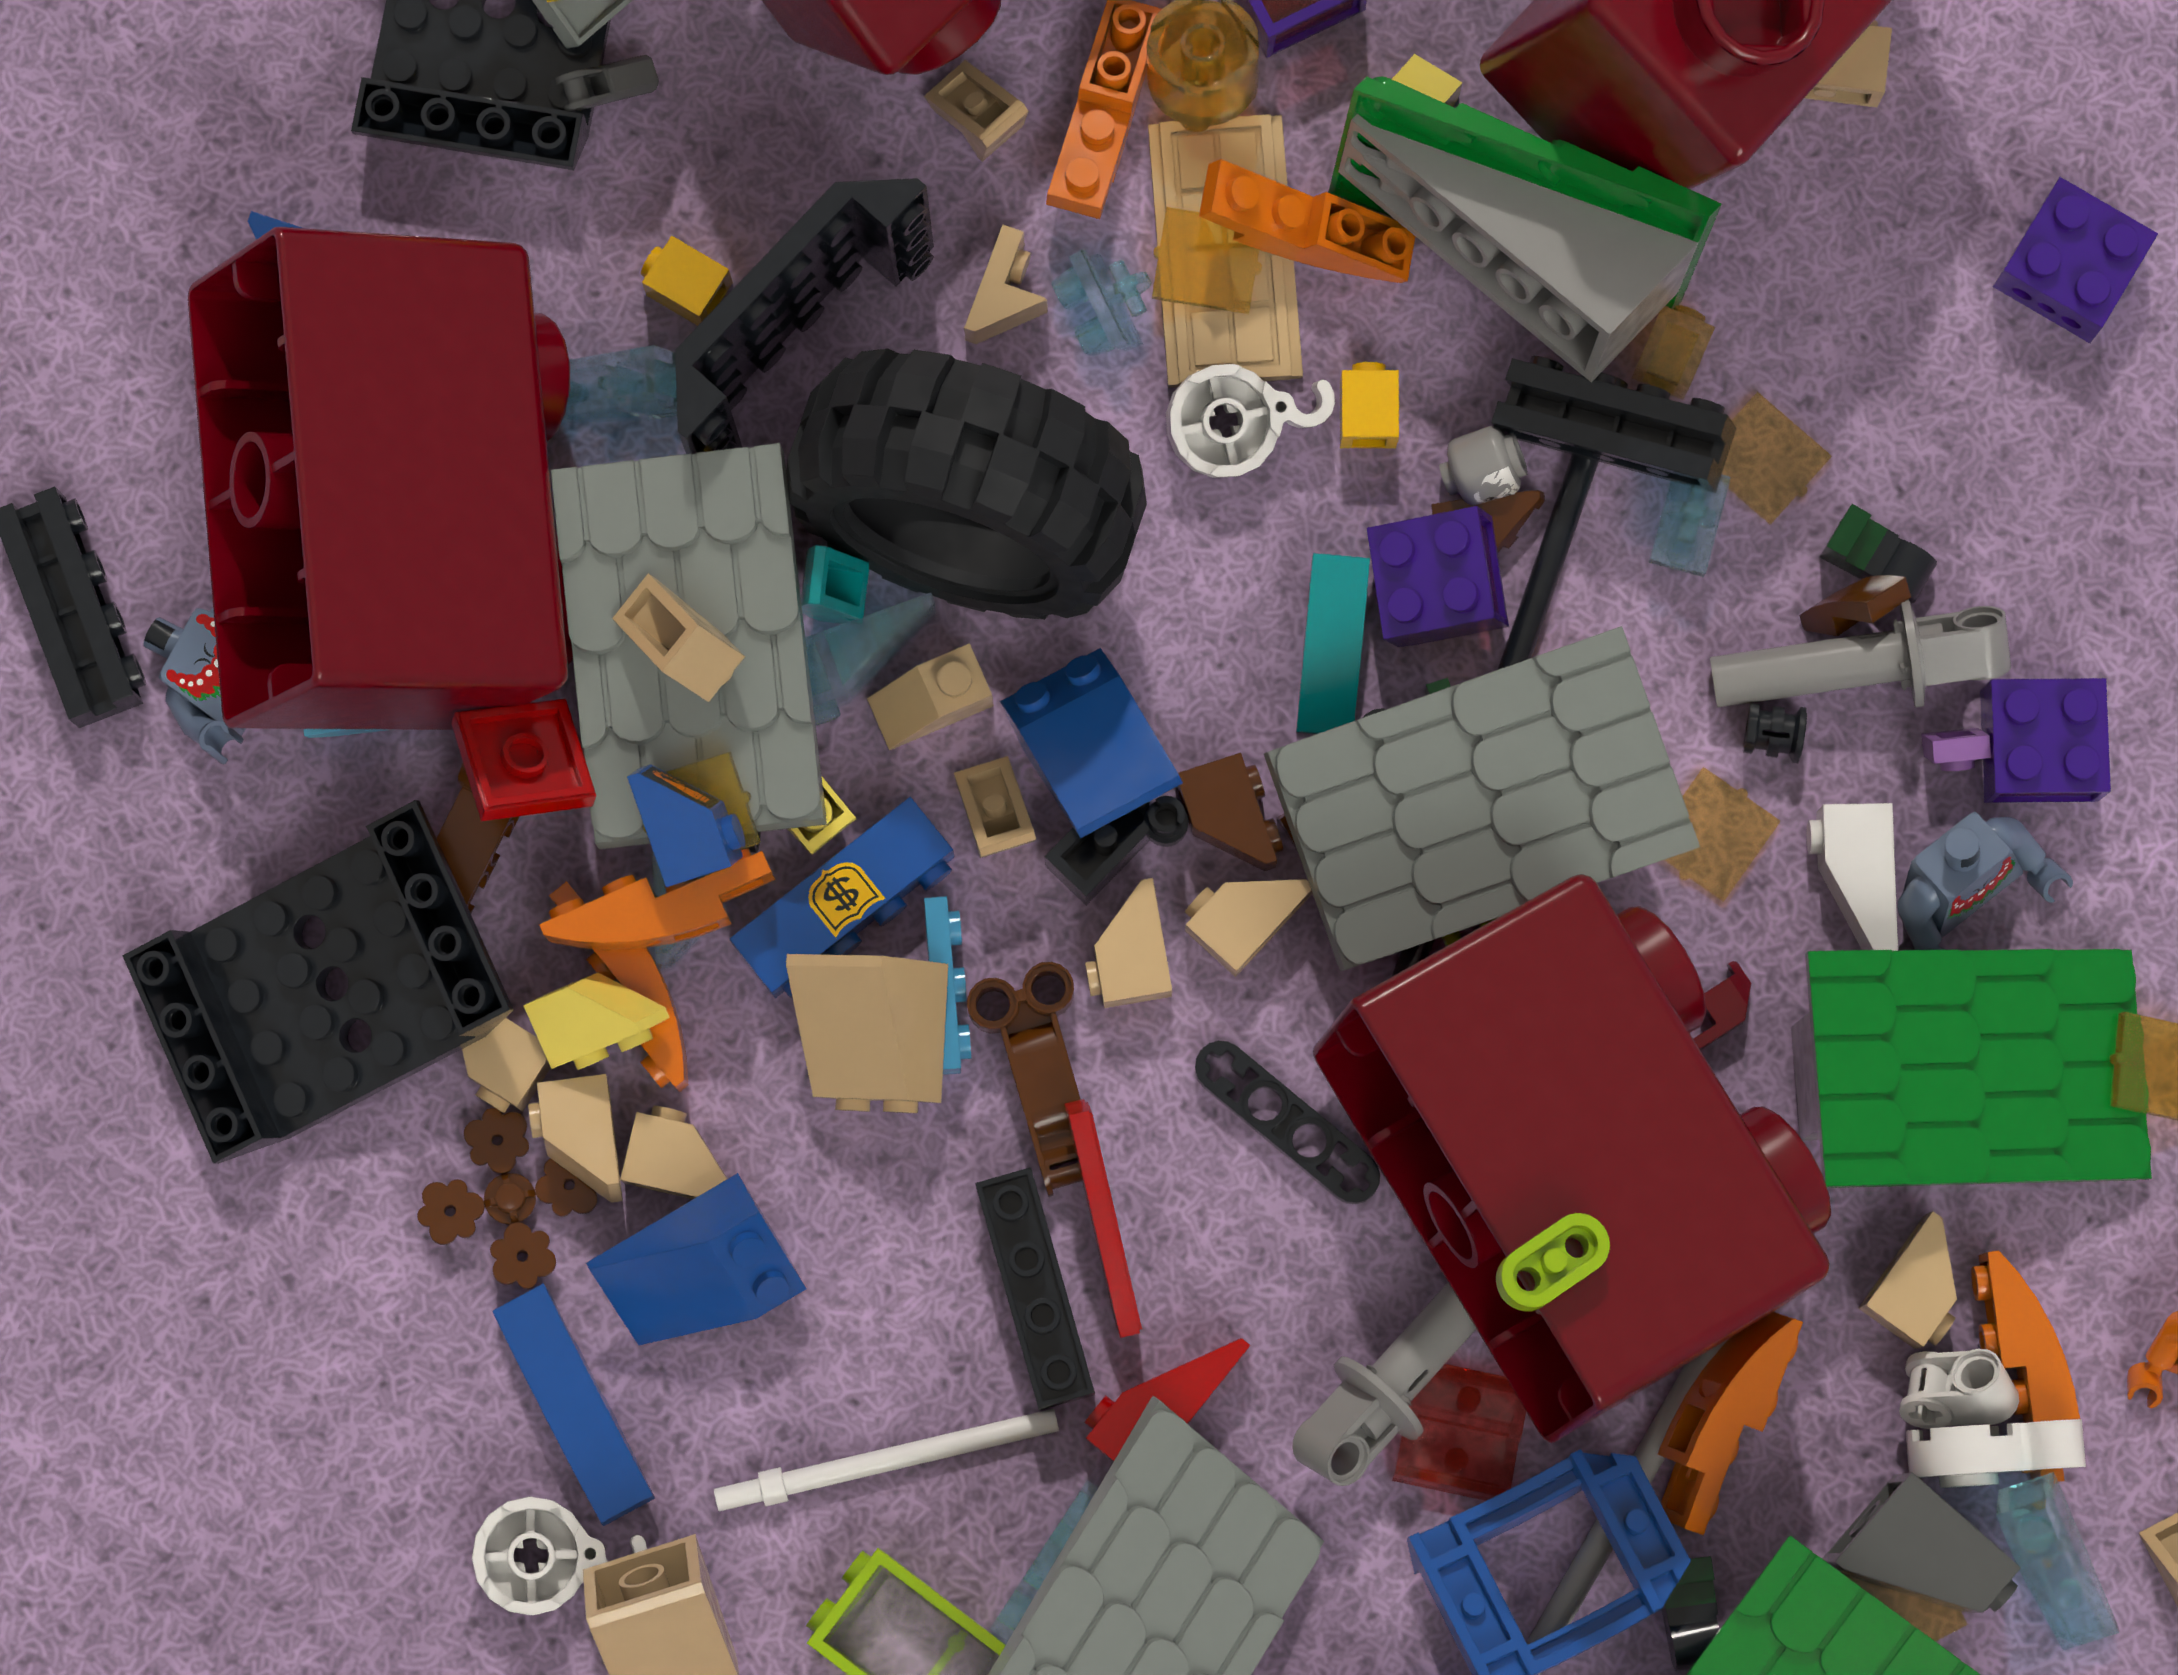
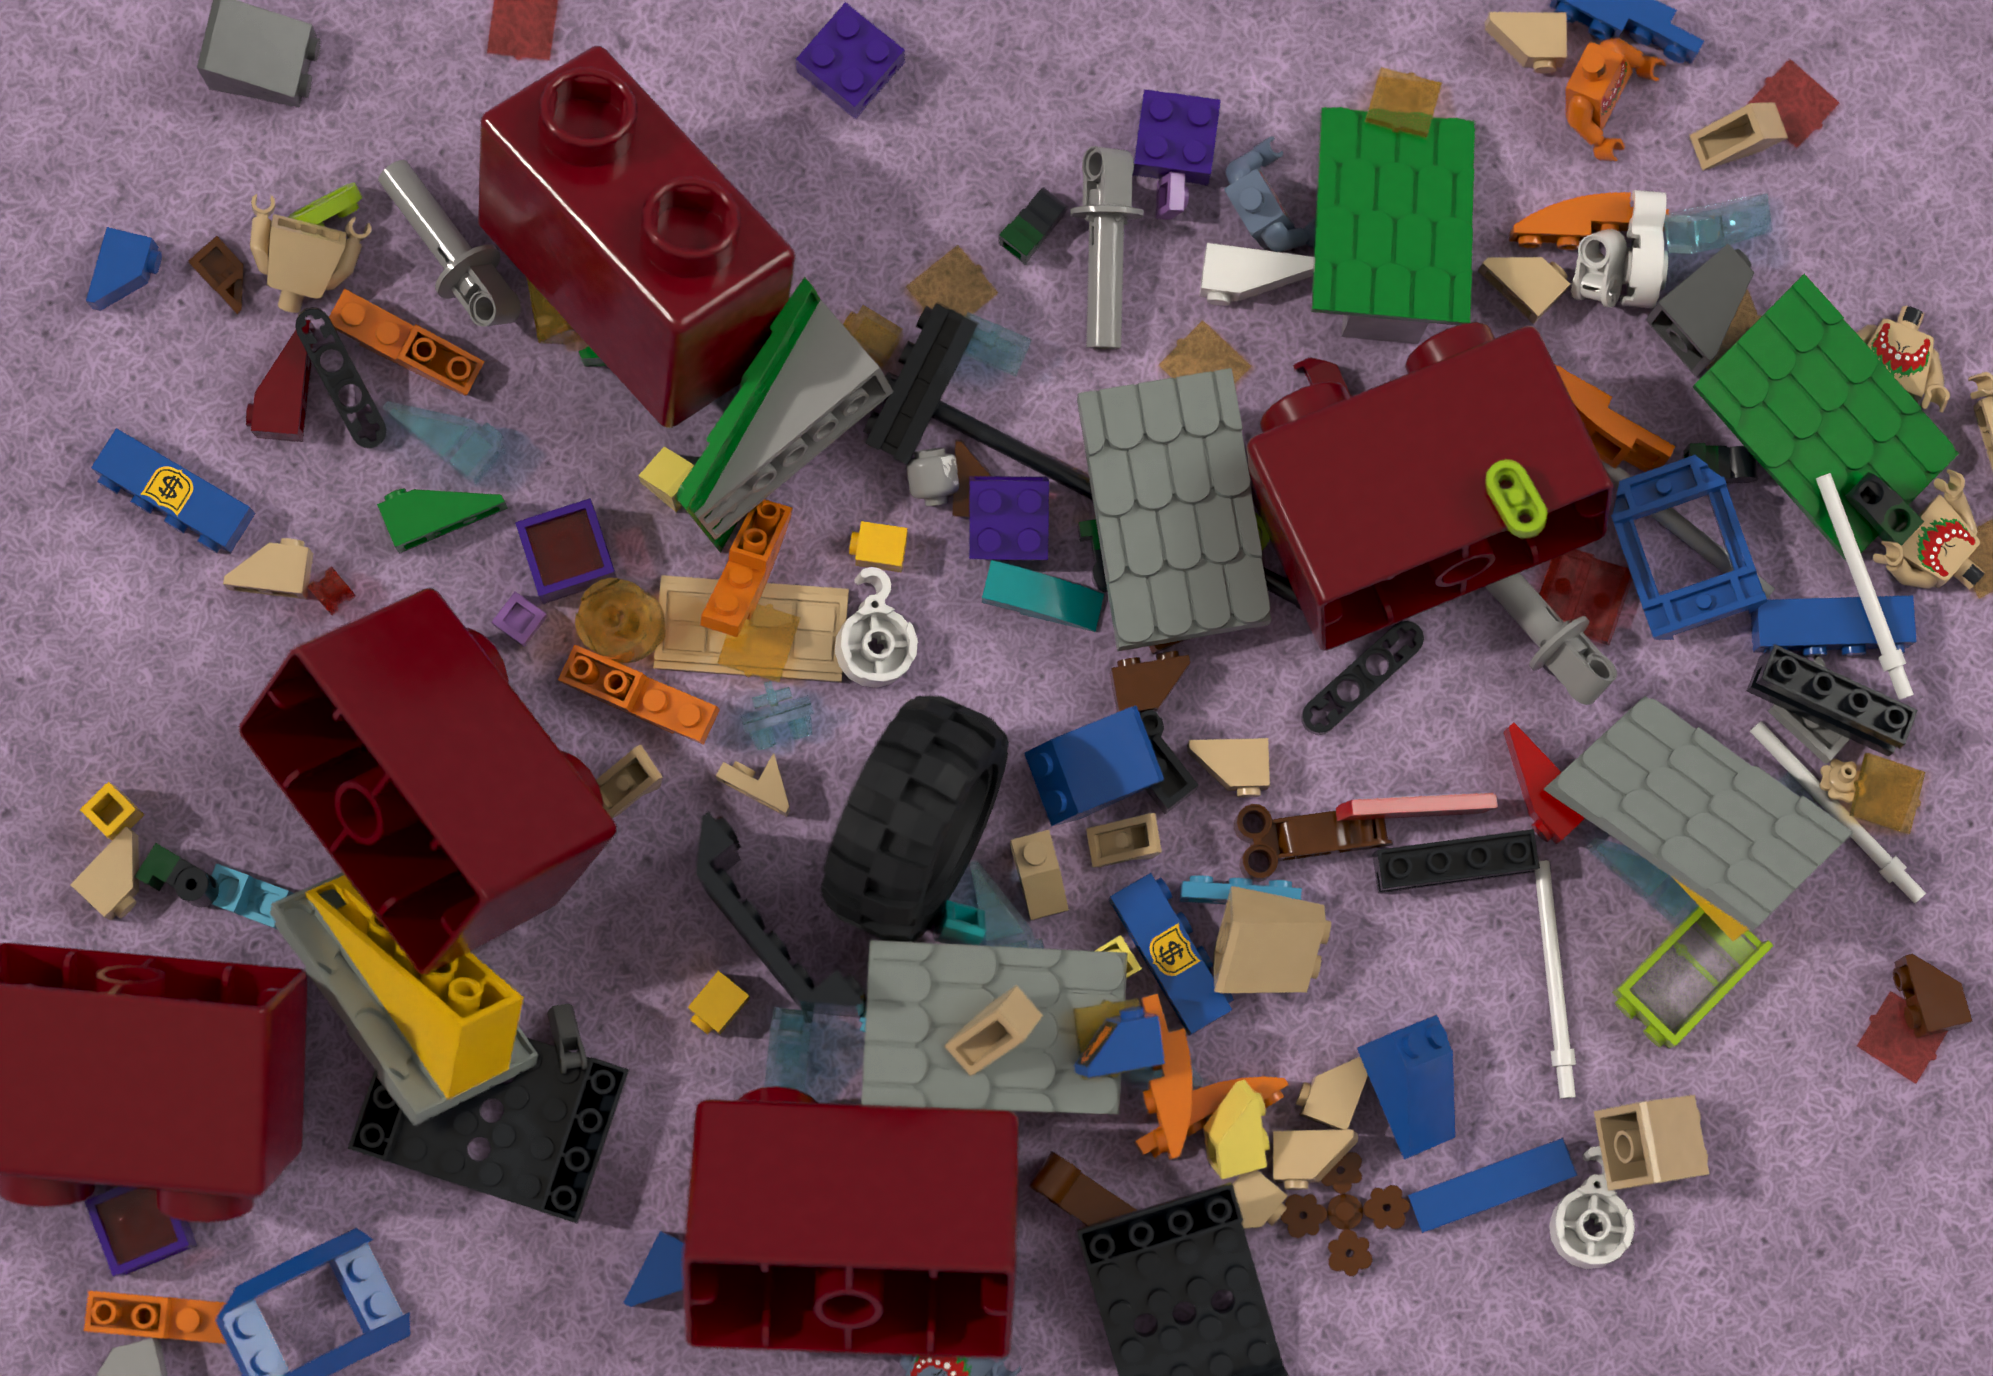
camera: 90 degrees left, 0 degrees up
(523, 759) = (1057, 1153): red plate -> none
(1243, 917) = (1222, 684): tan slope -> none
(1776, 721) = (1143, 312): black bush -> none
(1861, 601) = (1066, 240): reddish brown slope -> none

